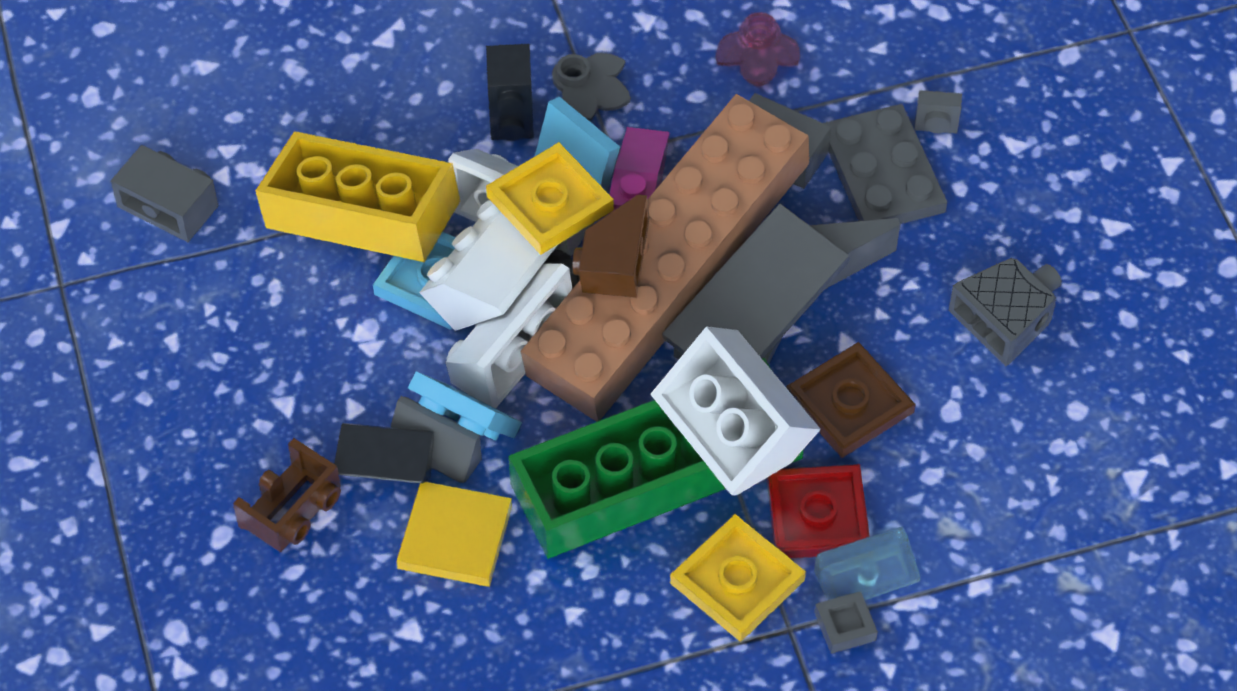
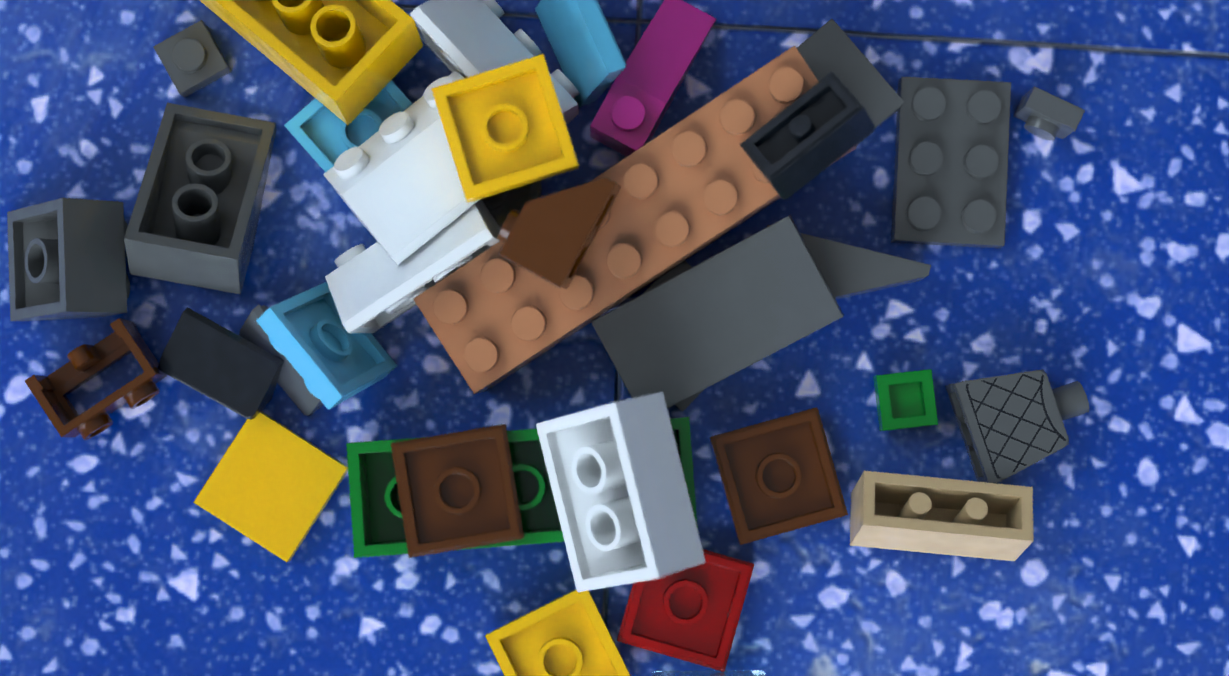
camera: 15 degrees right, 30 degrees up
(233, 424) = (67, 260): none -> dark grey slope
(283, 271) = (192, 59): none -> dark grey plate
(327, 355) = (200, 199): none -> dark grey slope
(609, 455) = (457, 490): none -> reddish brown tile
(772, 137) = (808, 136): none -> black slope
(922, 320) = (905, 400): none -> green plate
(985, 377) = (941, 516): none -> tan brick

